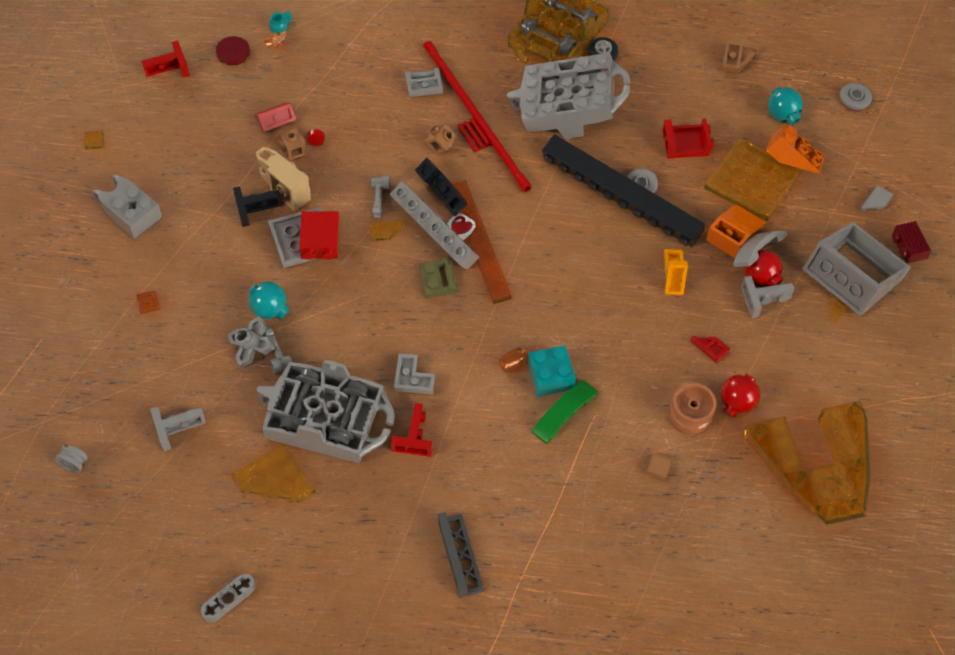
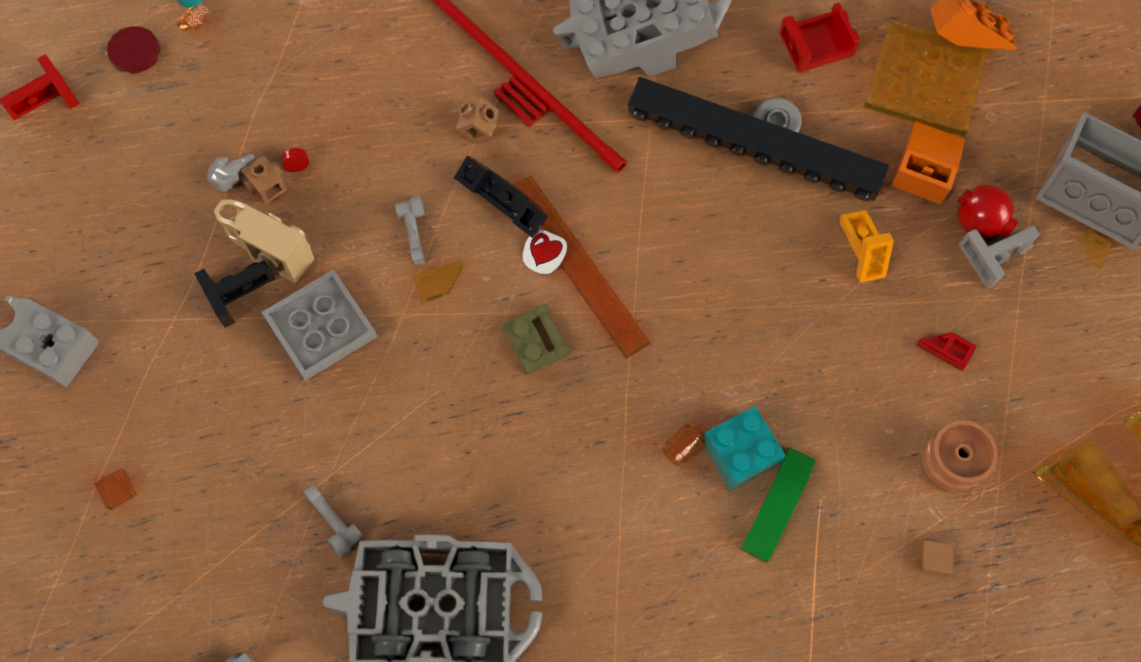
camera: 15 degrees left, 10 degrees up
(250, 341) = (290, 517): light grey plant -> none
(268, 300) = (298, 445): teal brick -> none
(269, 136) = (224, 176): none -> light grey piece
(275, 116) = (226, 138): red panel -> none
(319, 235) = (346, 319): red brick -> none
(409, 380) = (542, 516): light grey plate -> none
(414, 443) = (578, 605): red bracket -> none
(423, 82) = (427, 42): light grey plate -> none
(434, 225) = (508, 259): light grey brick -> none
(740, 394) = (1018, 417): red brick -> none
(749, 251) = (965, 192): light grey slope -> none
(877, 200) = (1098, 68): light grey tile -> none

